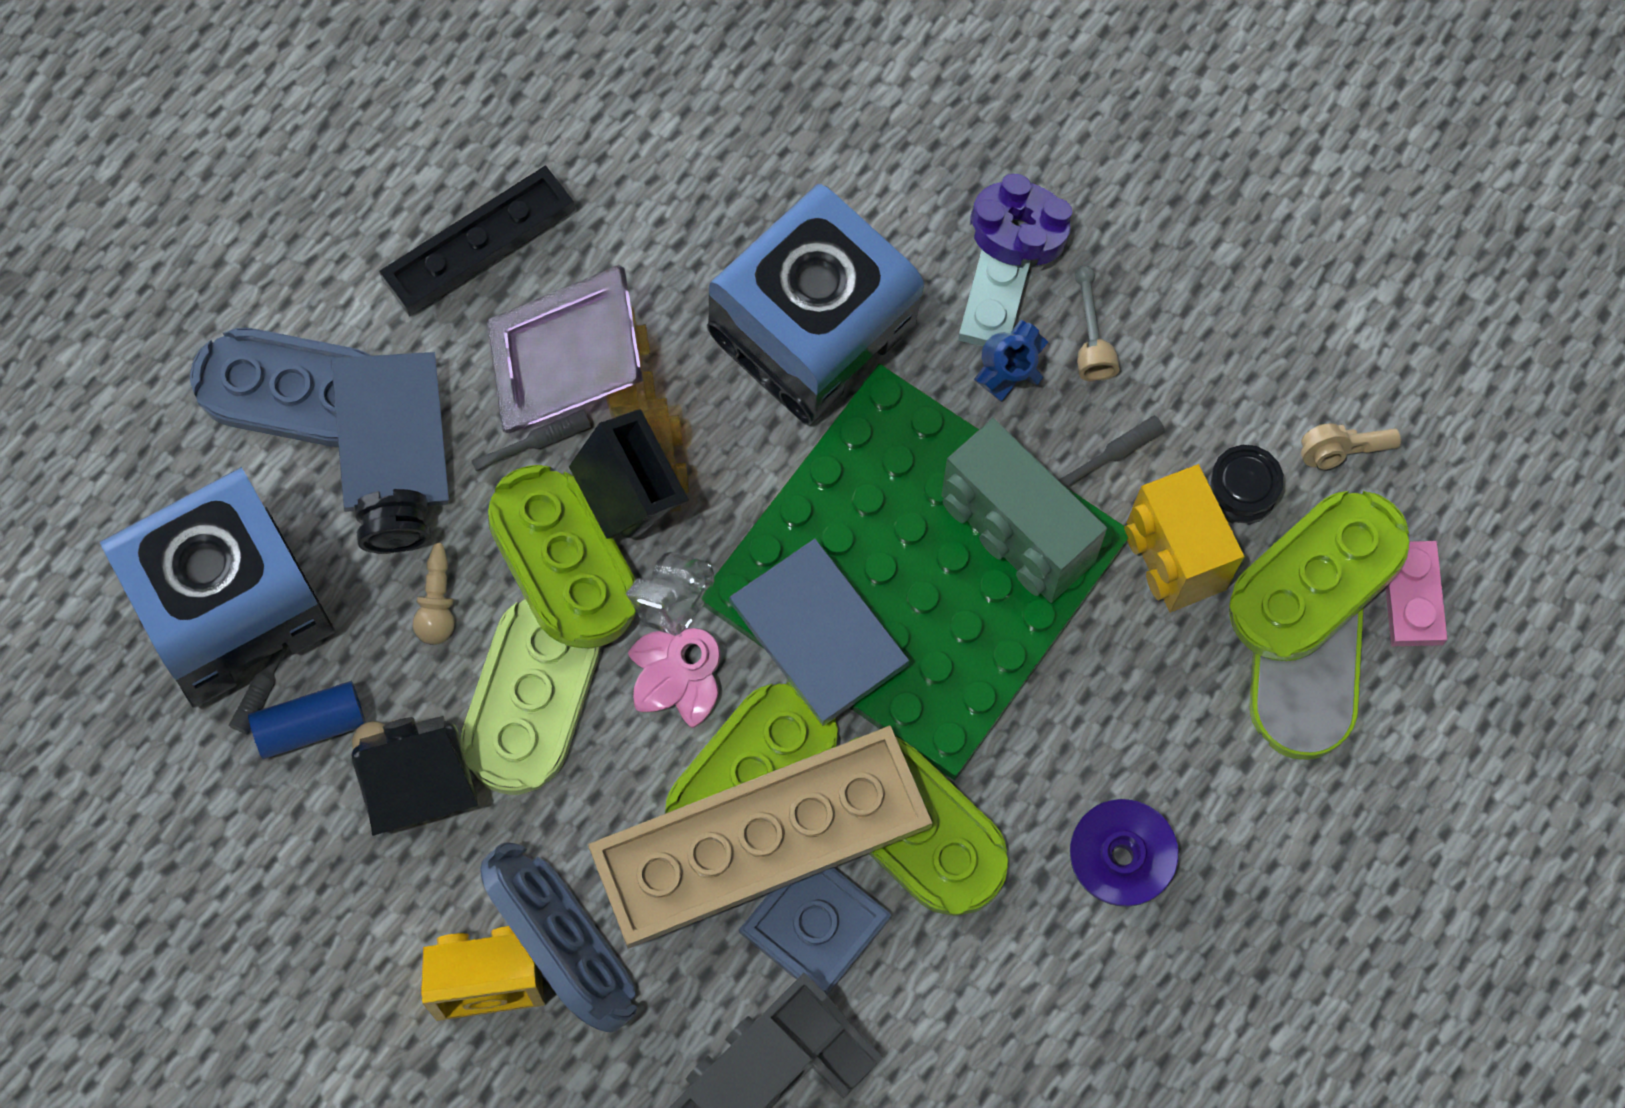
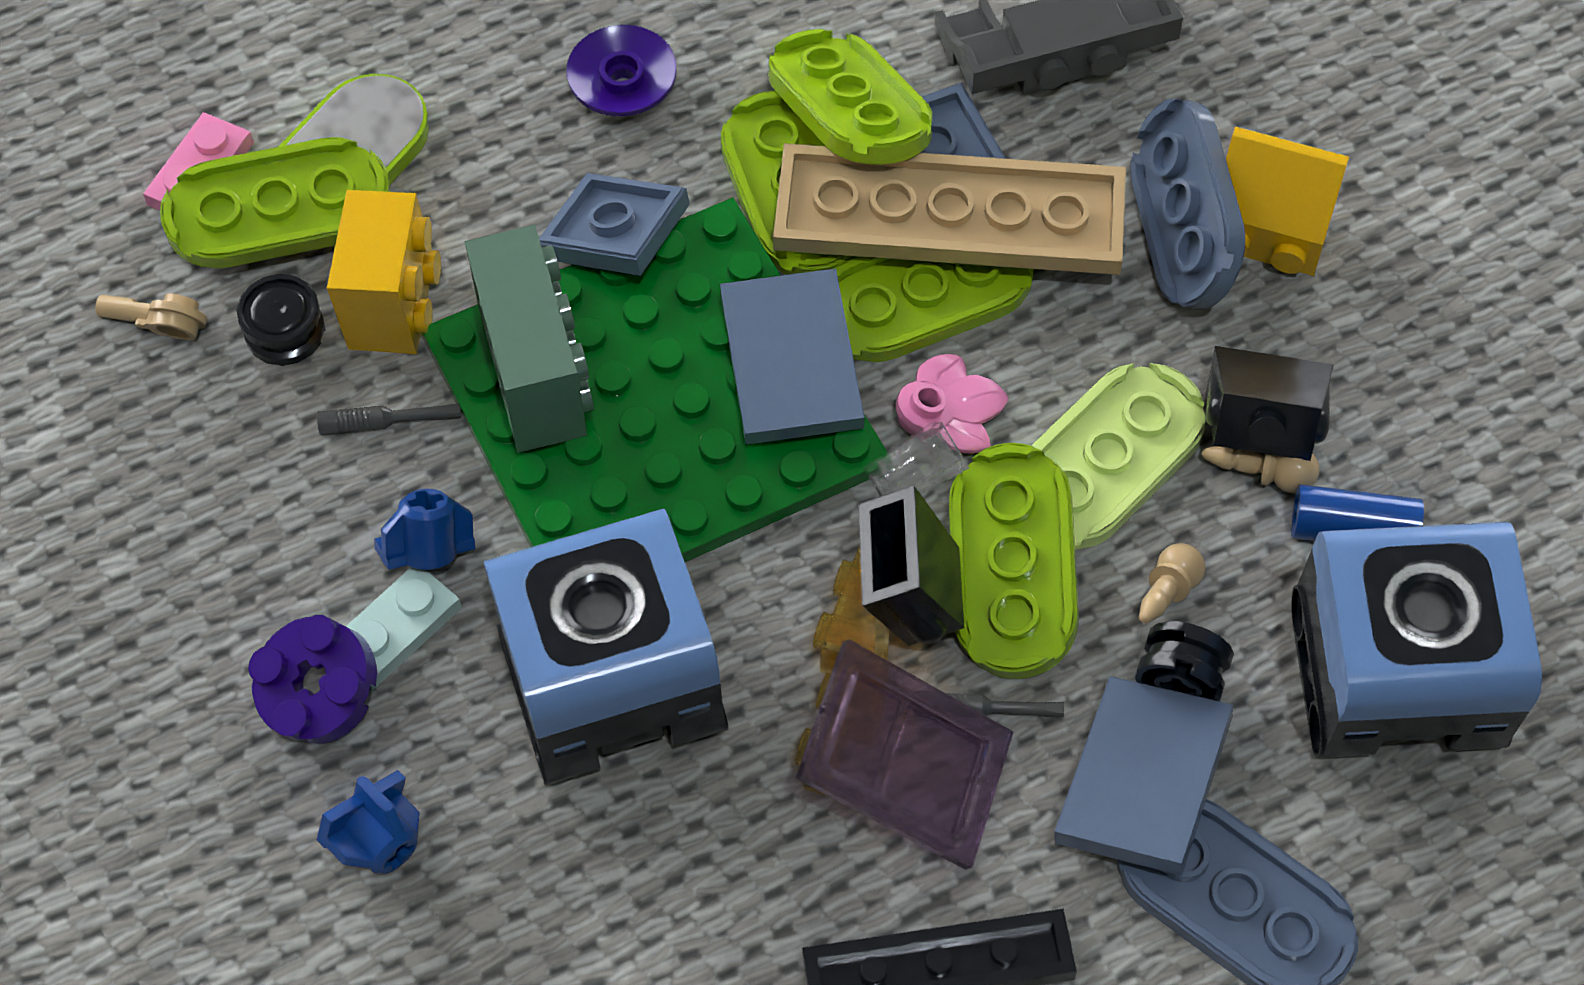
camera: 150 degrees left, 10 degrees down
(907, 914) = (850, 97): none -> lime tile
(909, 147) = (373, 826): none -> blue piece
(1035, 691) = (615, 223): none -> sand blue tile
(1096, 357) = (333, 510): tan hinge -> none

